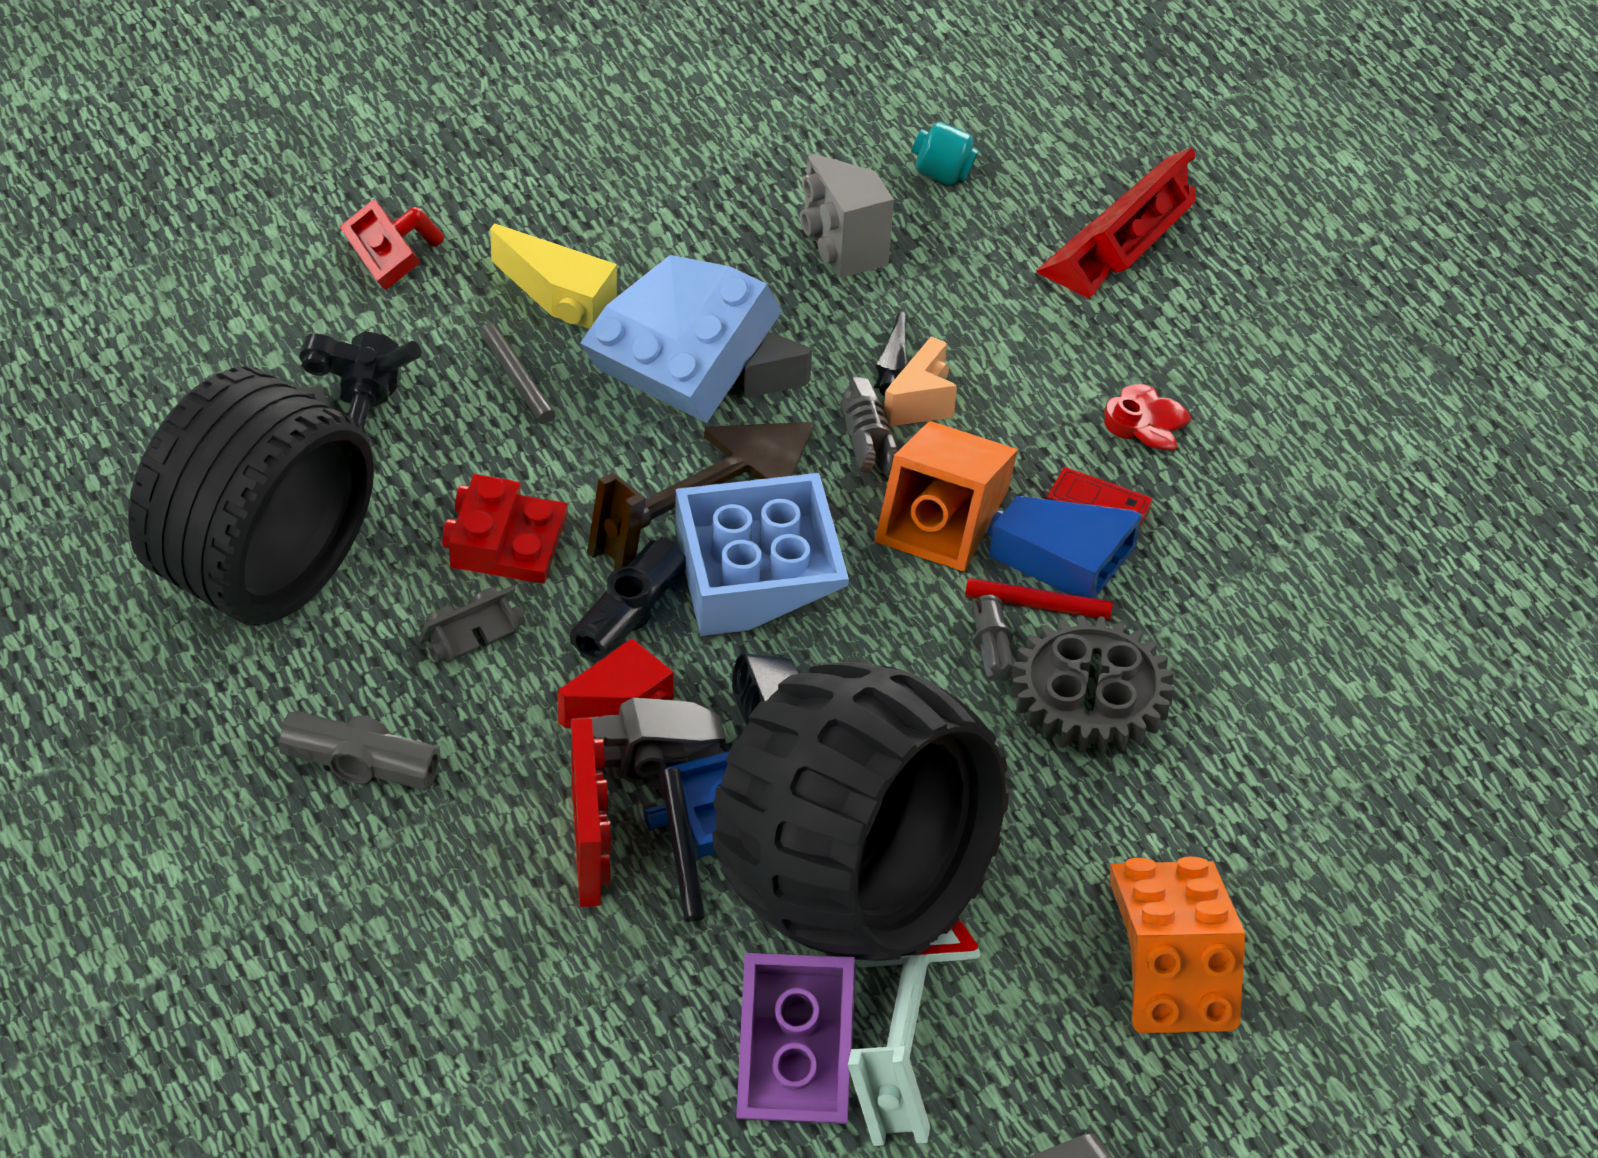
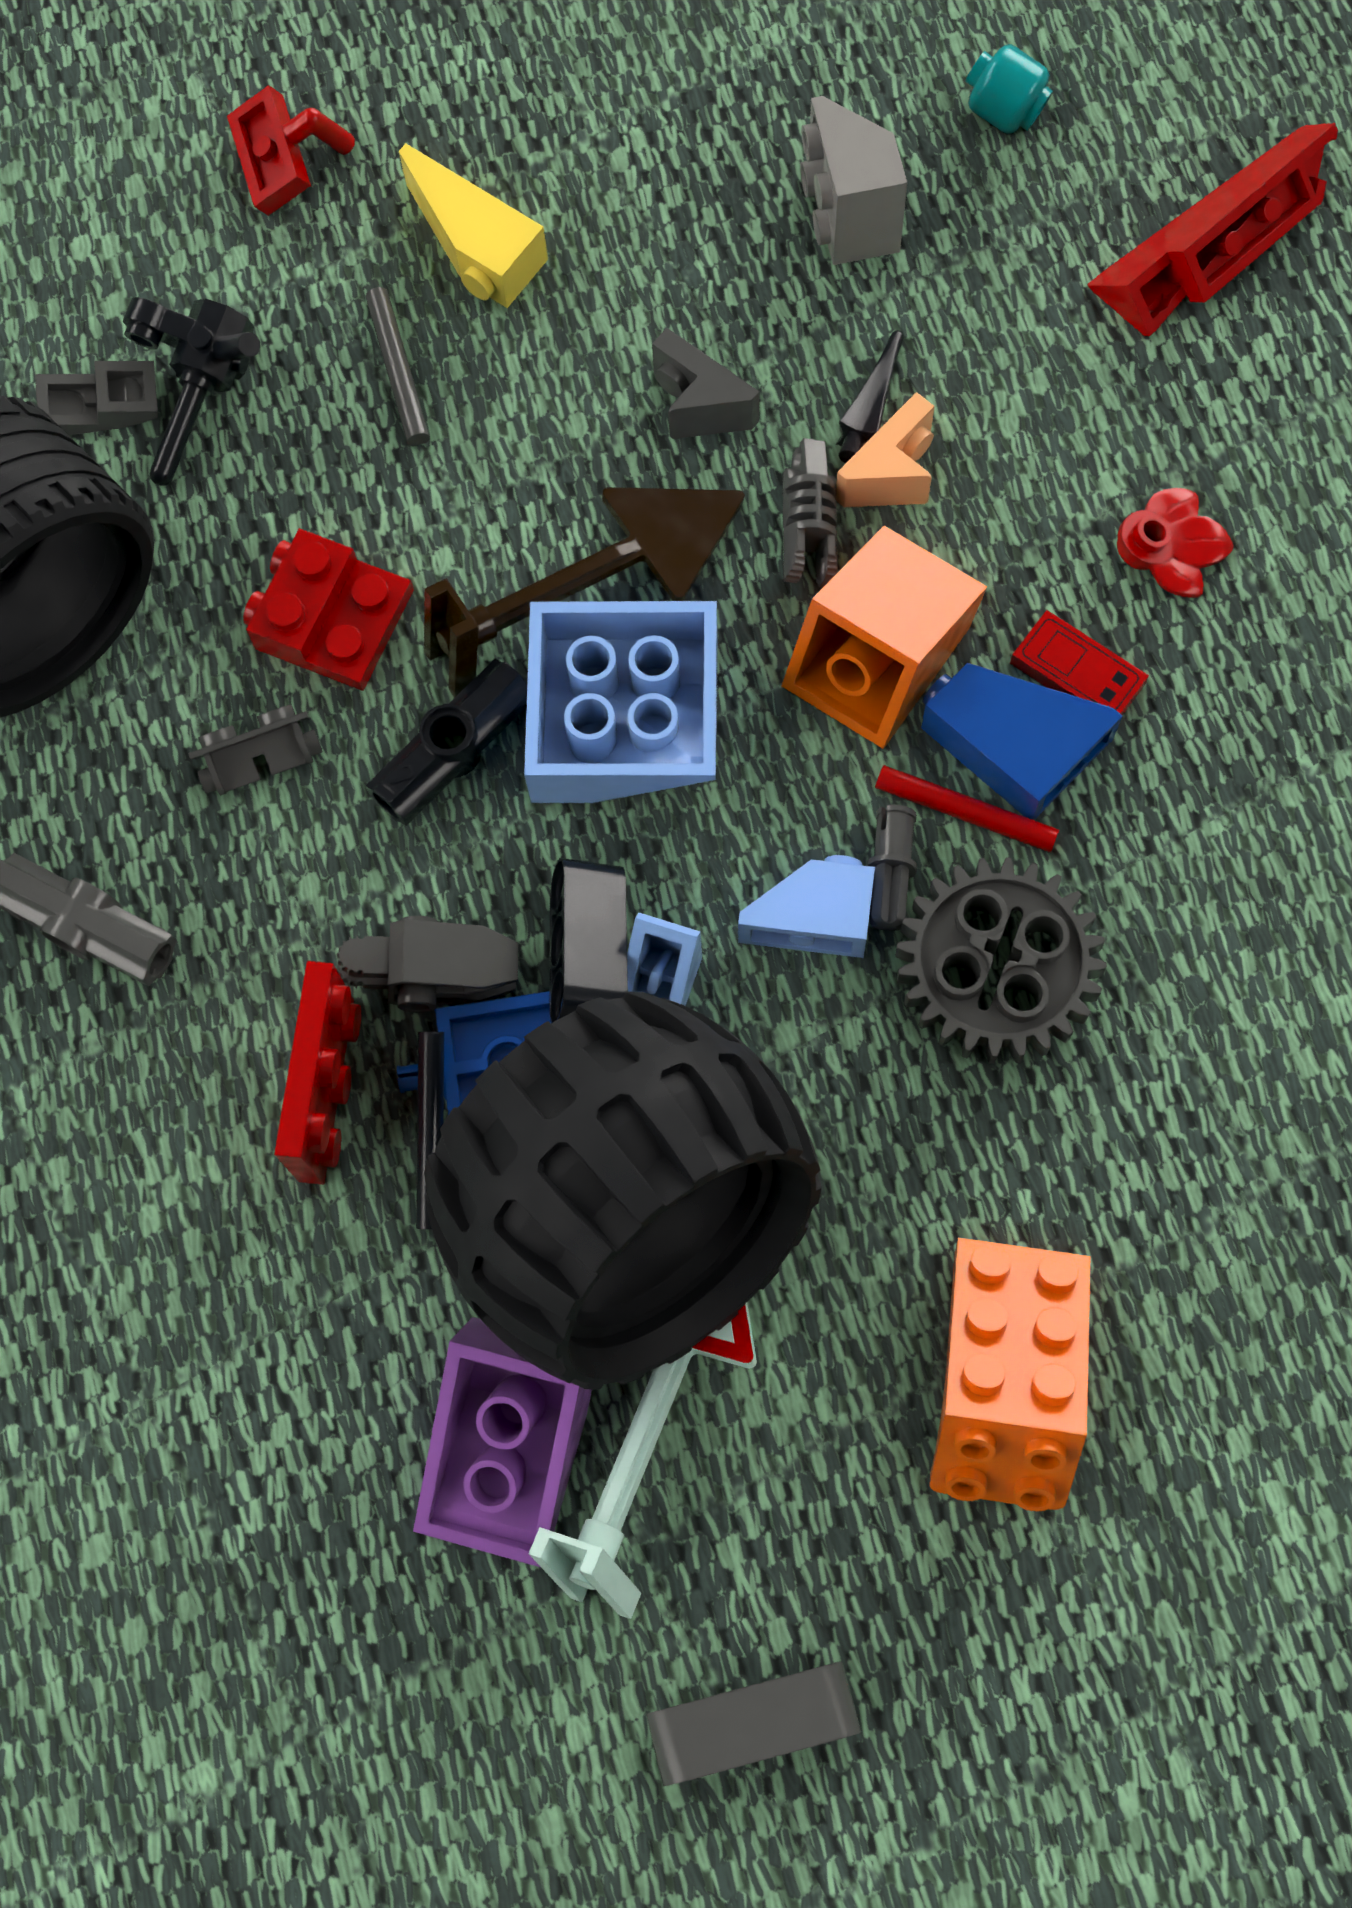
camera: 20 degrees right, 25 degrees up
(612, 681) = (406, 878): red slope -> none
(683, 332) = (599, 348): light blue slope -> none
(953, 661) = (814, 909): none -> light blue slope

